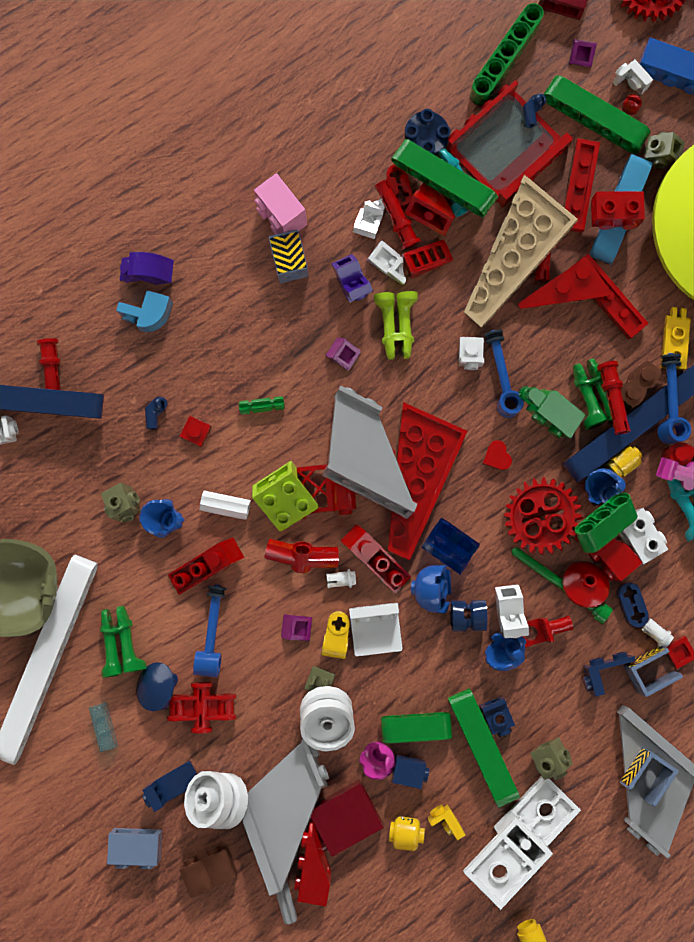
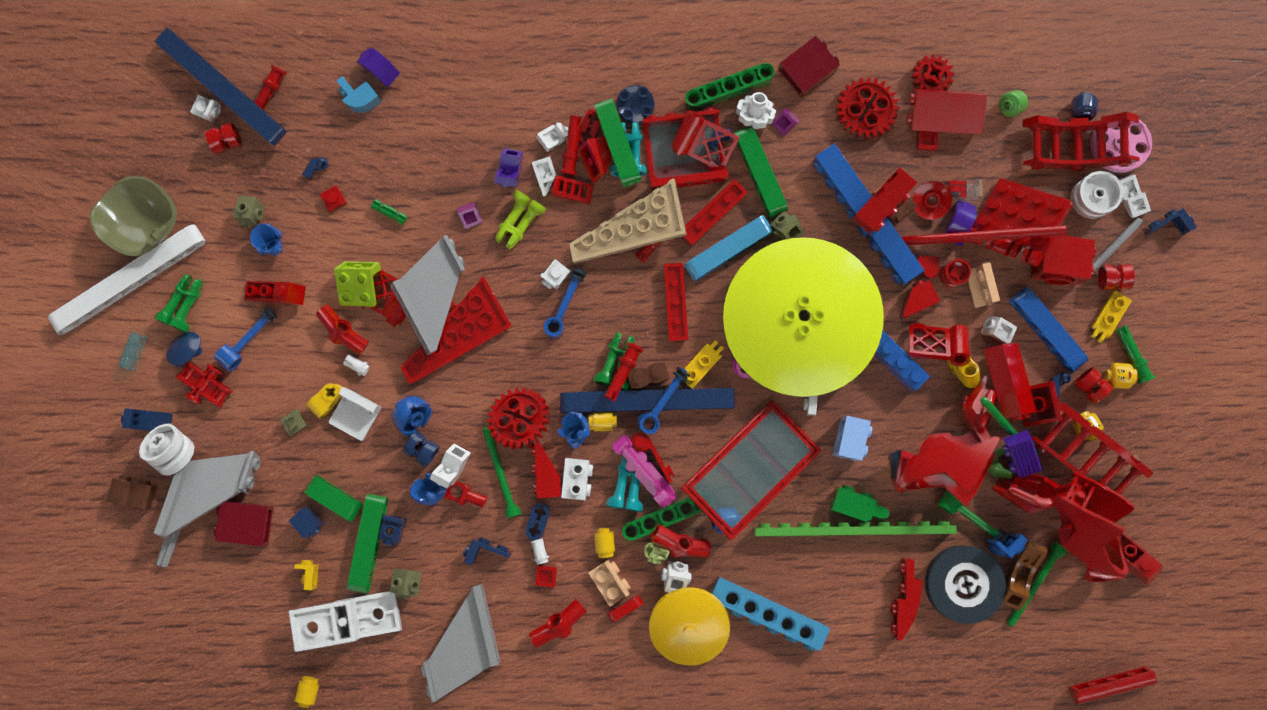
camera: 40 degrees right, 0 degrees up
(41, 447) = (222, 138): none -> red wheel
(134, 847) = (95, 443): sand blue brick -> none
(225, 505) = (315, 261): white axle -> none
(279, 206) = (495, 86): bright pink brick -> none
(289, 256) = (478, 123): piece -> none
(296, 627) = (304, 376): magenta slope -> none
(316, 872) = (198, 543): red slope -> none
(326, 718) = (276, 448): white wheel -> none
(375, 558) = (388, 367): red slope -> none
(377, 761) = (291, 501): dark pink hair -> none
(406, 833) = (276, 562): yellow head -> none
(450, 545) = (443, 394): clear blue bracket -> none
(497, 456) = (520, 357): red tile -> none
(506, 123) = (689, 135): none -> red piece
(550, 58) = (756, 111): none -> white plant
(552, 410) = (577, 351): green hinge -> none
(575, 284) = (656, 277): red wing -> none
(579, 590) = (507, 489): red dish -> none
(606, 522) = (553, 451): green beam -> none
(617, 209) = (719, 246): red brick -> none
(632, 107) = (789, 183): red hinge -> none
(636, 76) = (807, 165): white bracket -> none
(657, 684) = (500, 583): sand blue piece -> none
(661, 783) = (473, 634): sand blue piece -> none

